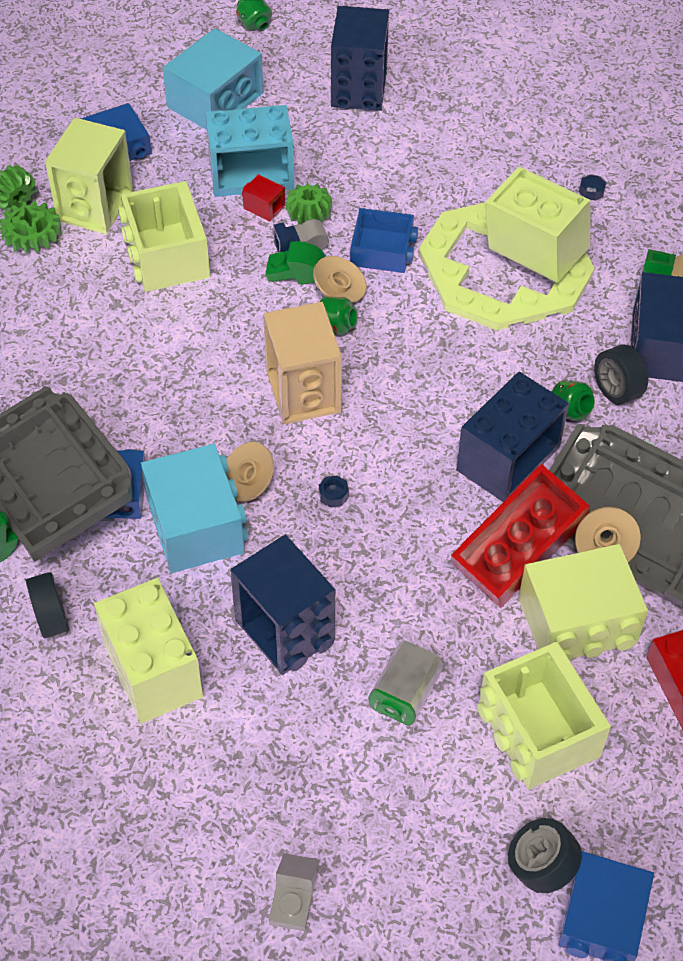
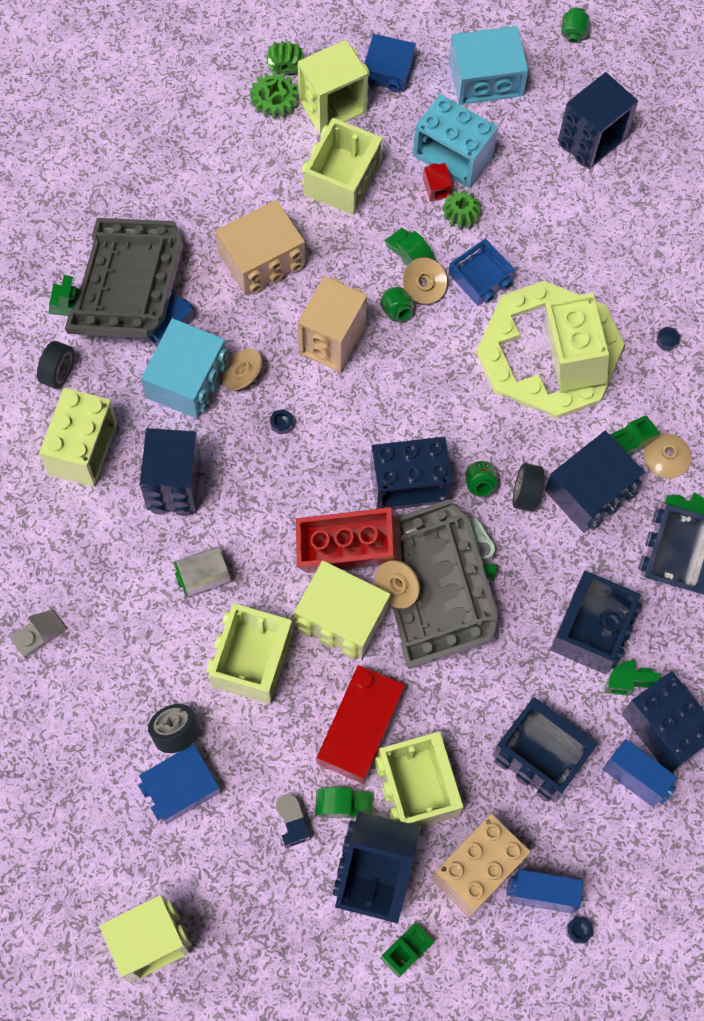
camera: 40 degrees right, 15 degrees up
(157, 352) = (261, 247): none -> tan container
(309, 232) = (433, 231): leg -> none

